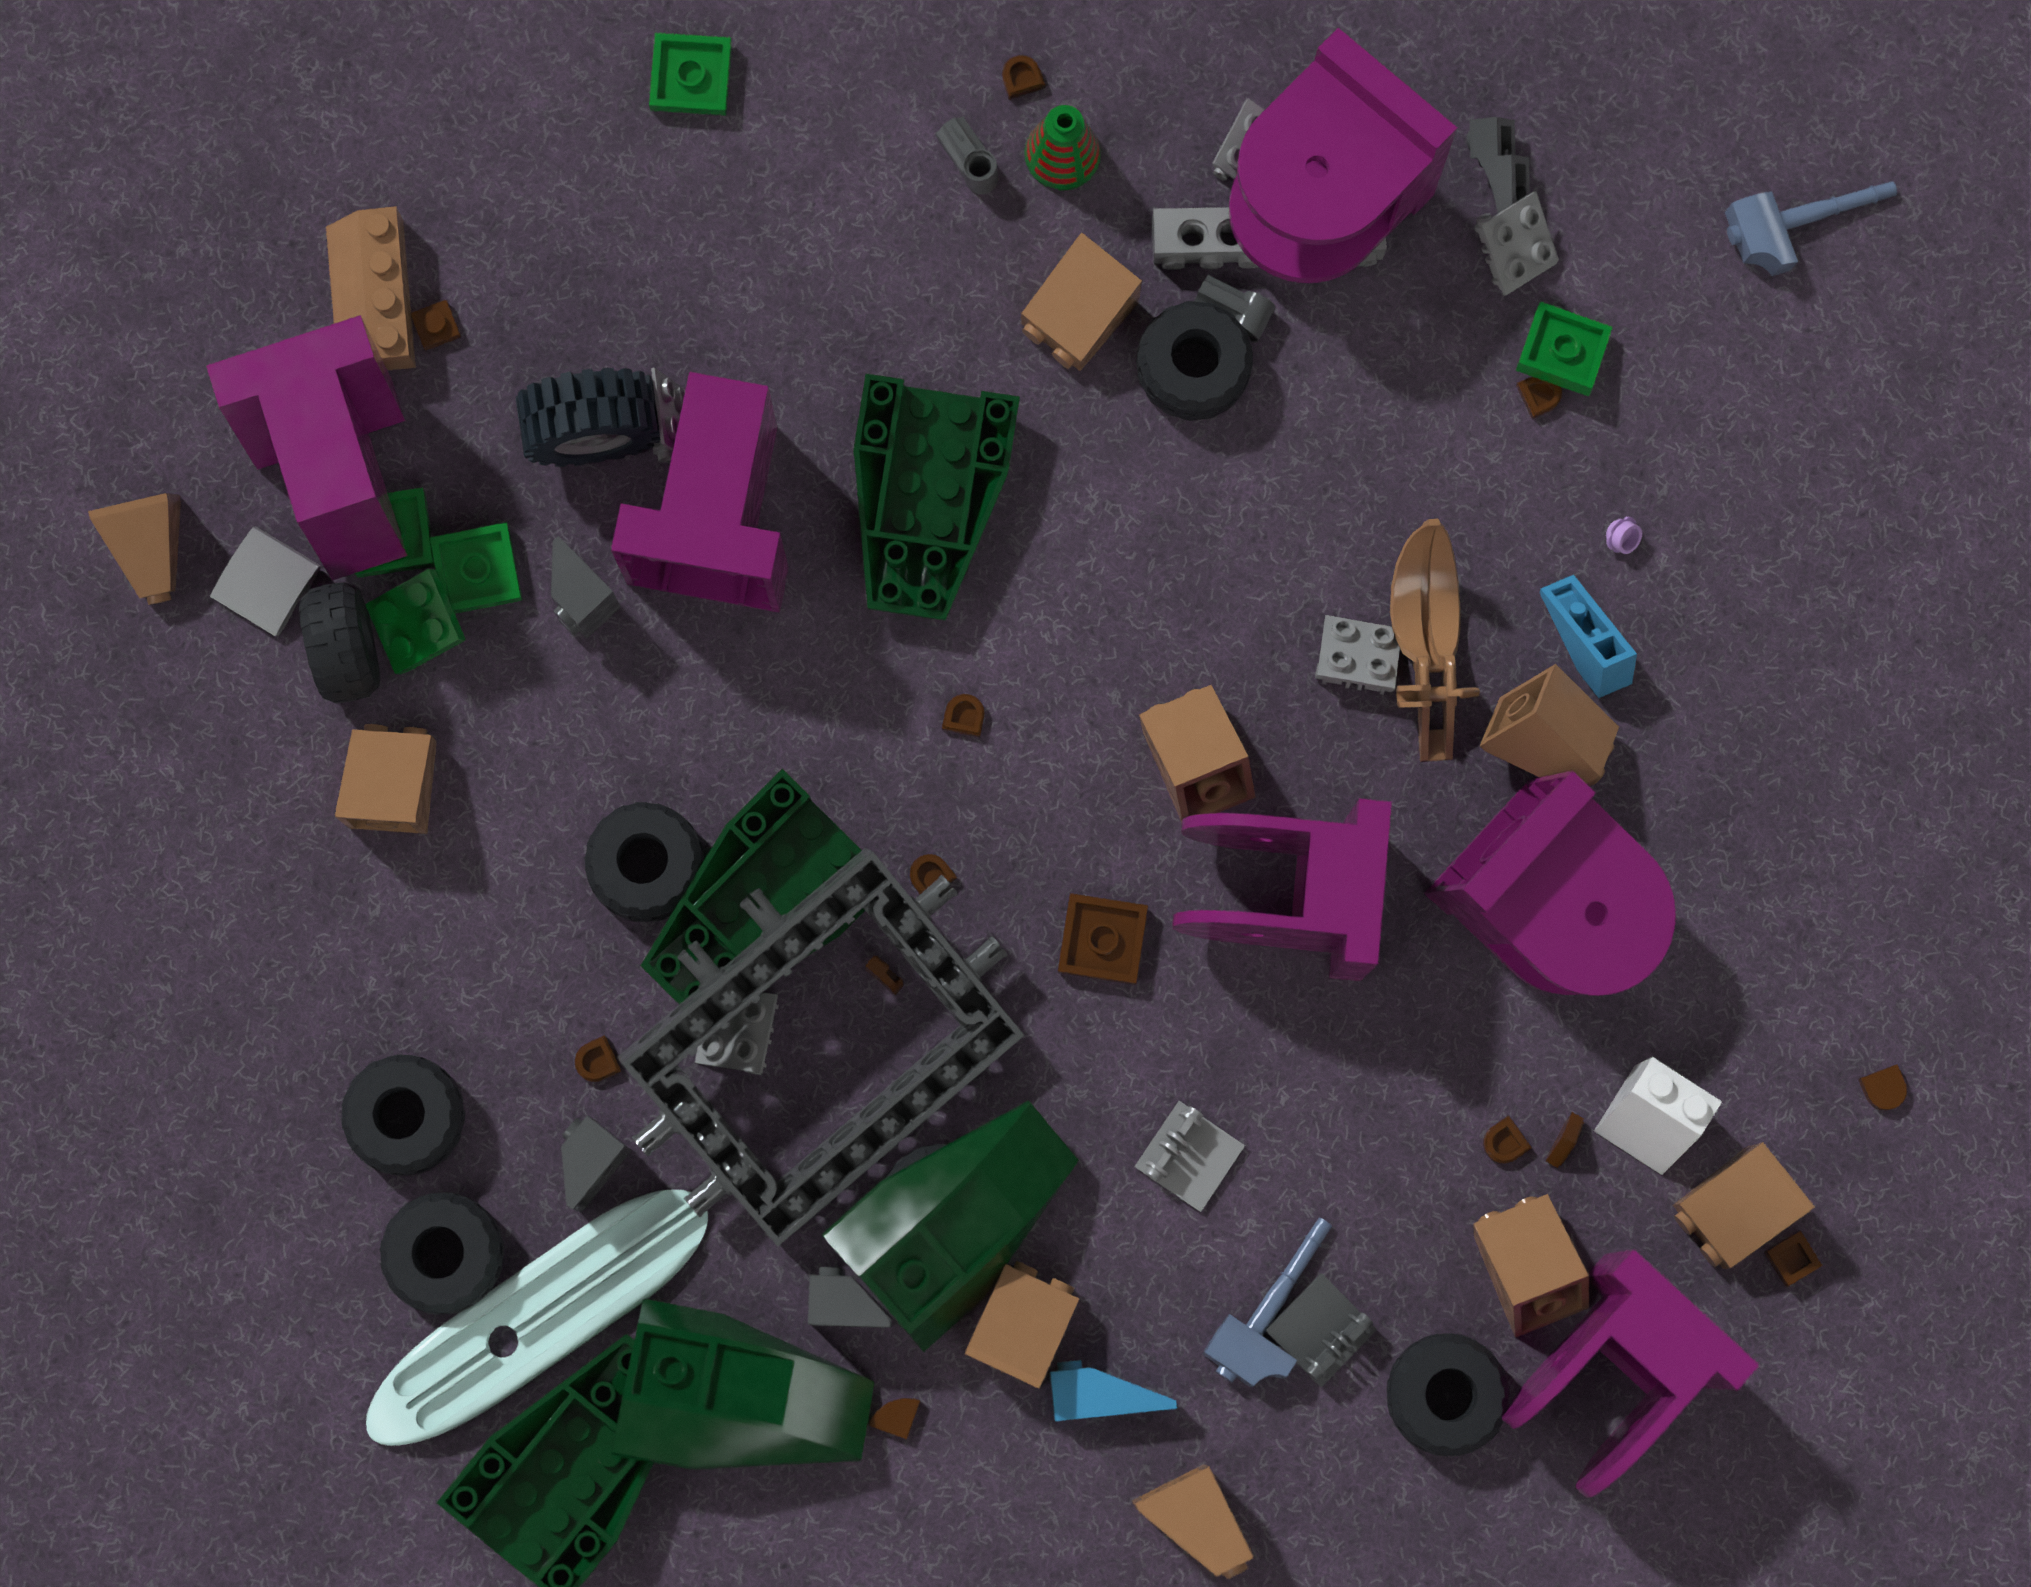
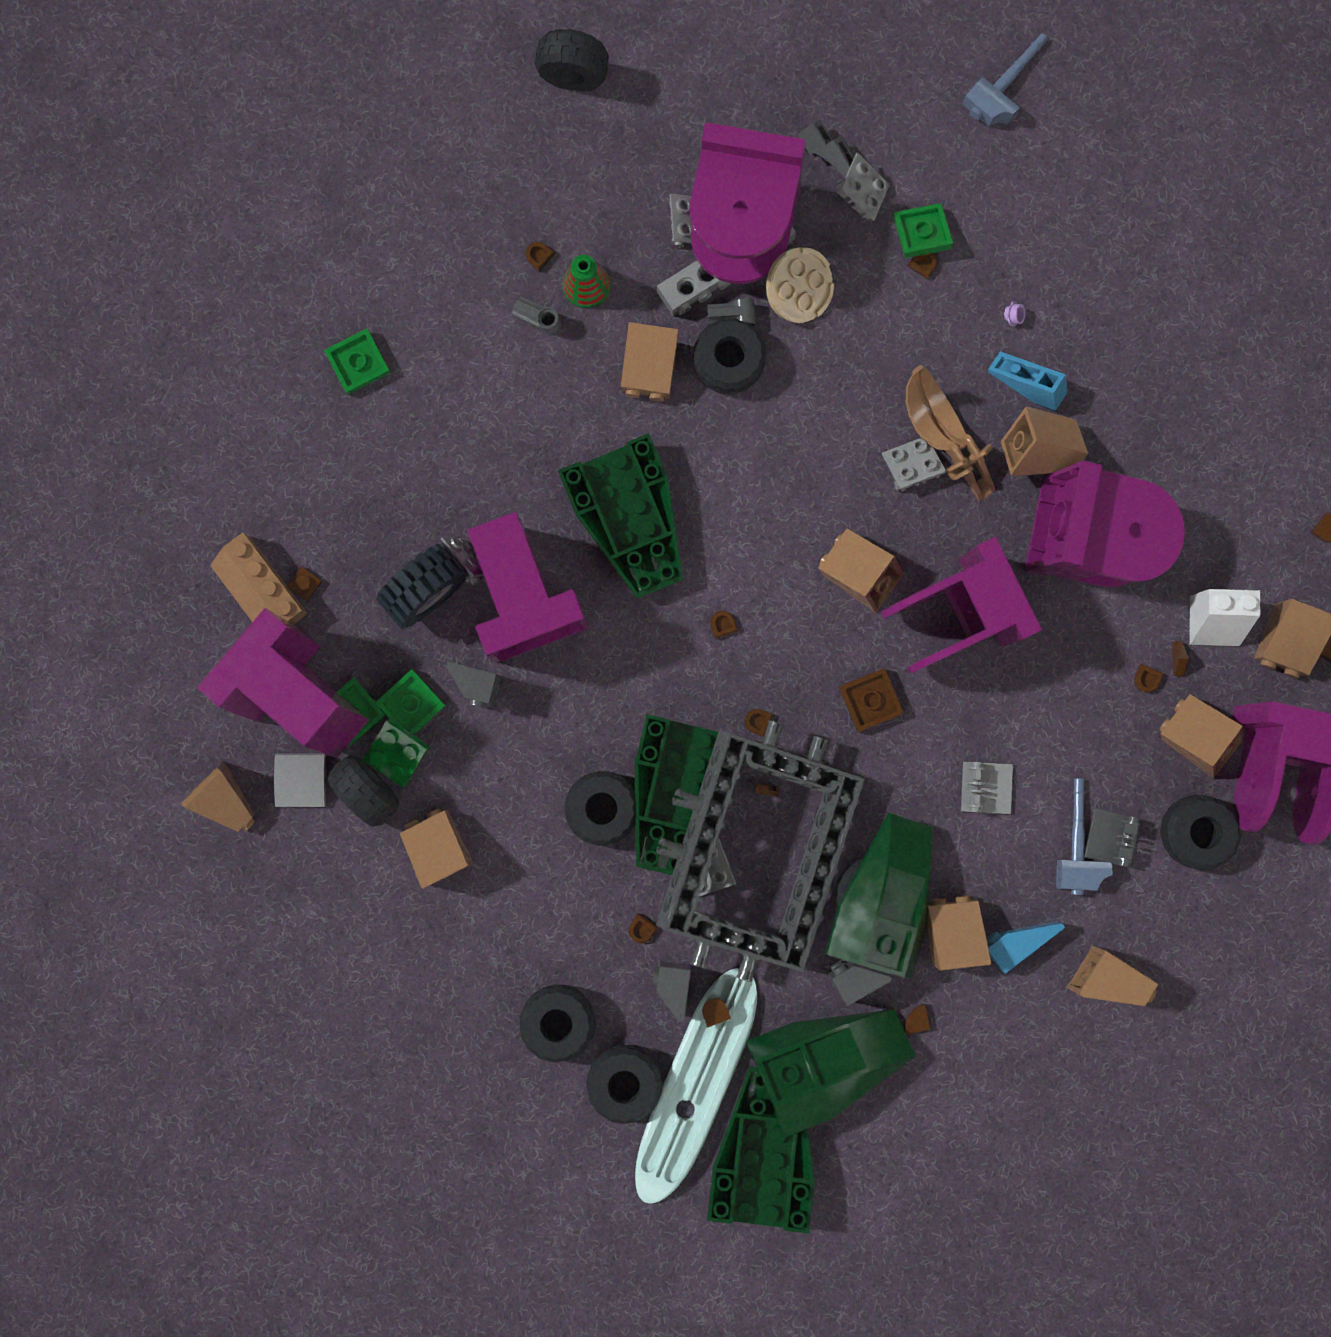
camera: 25 degrees left, 5 degrees up
(625, 1230) = (715, 1011): none -> reddish brown tile
(1349, 322) = (800, 285): none -> tan tile

